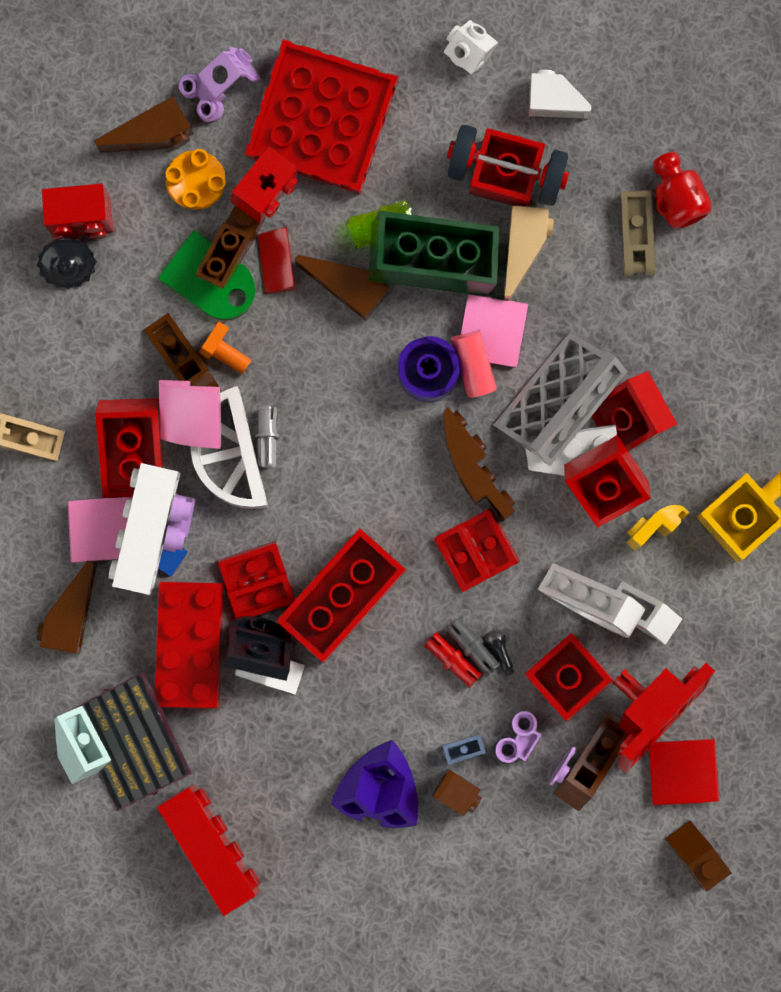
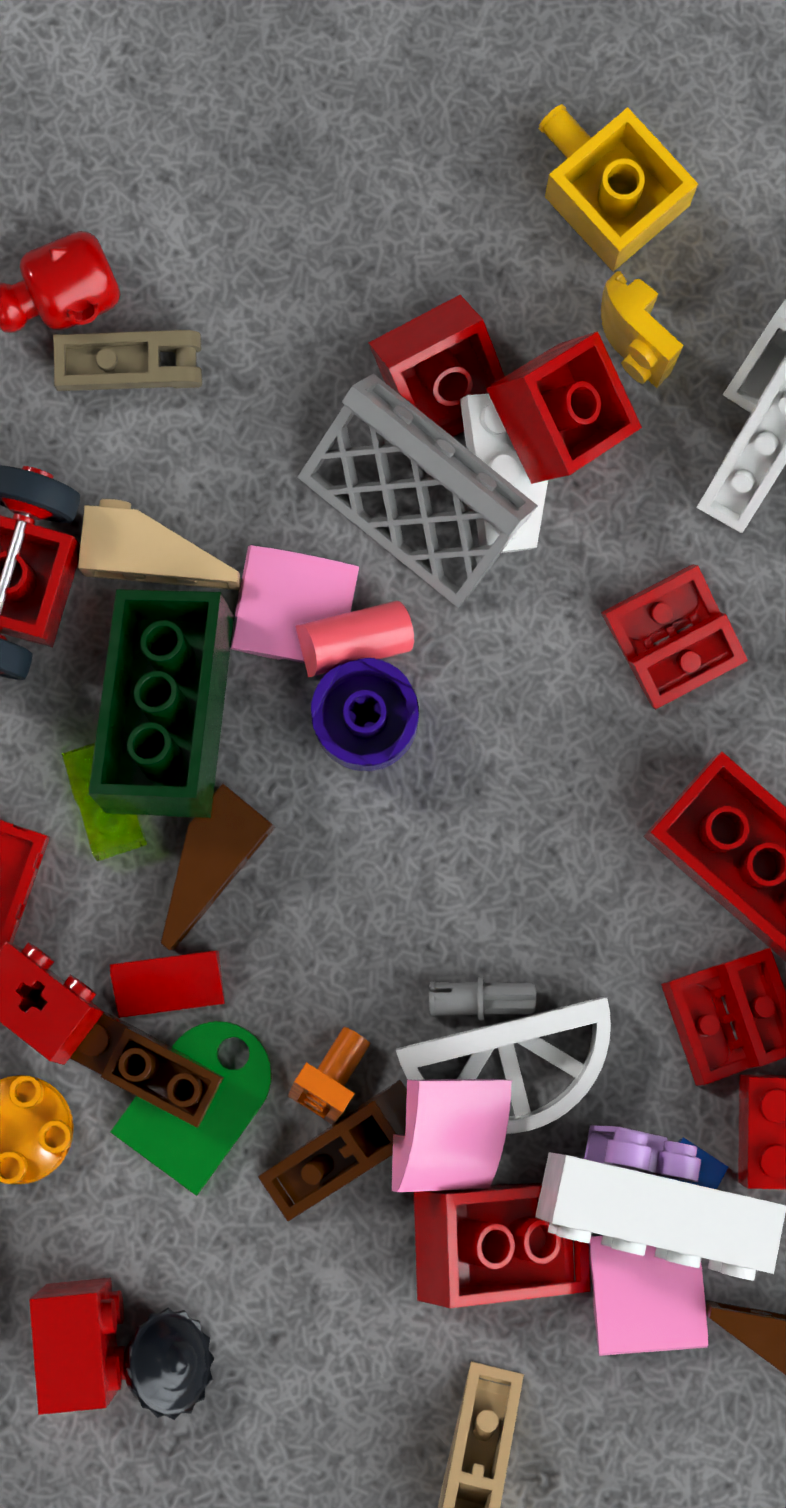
camera: 90 degrees left, 0 degrees up
(465, 455) = (514, 652): reddish brown slope -> none

